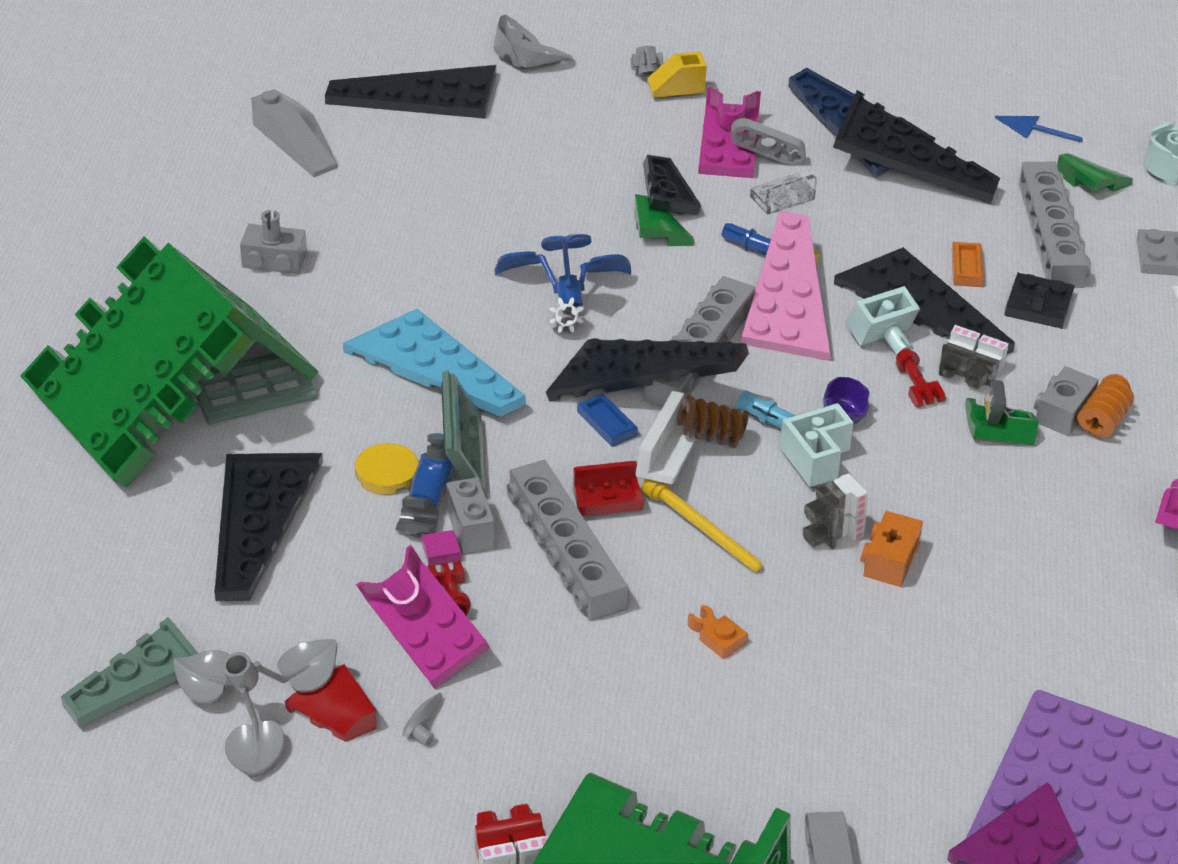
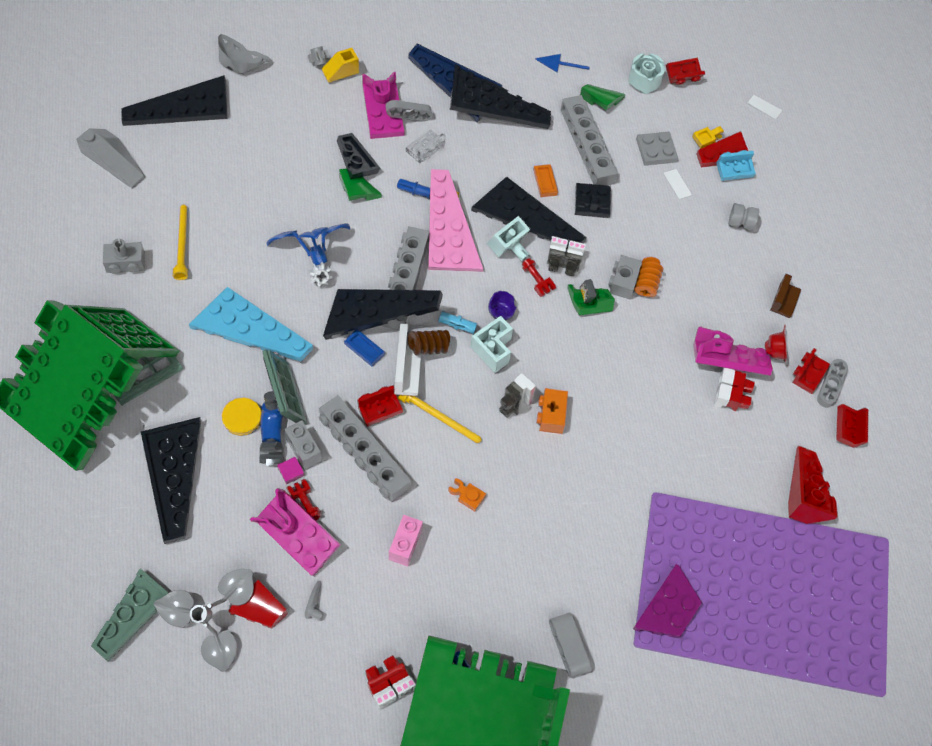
camera: 20 degrees left, 20 degrees up
(352, 278) = (180, 271): none -> yellow piece
(595, 664) = (405, 540): none -> bright pink brick

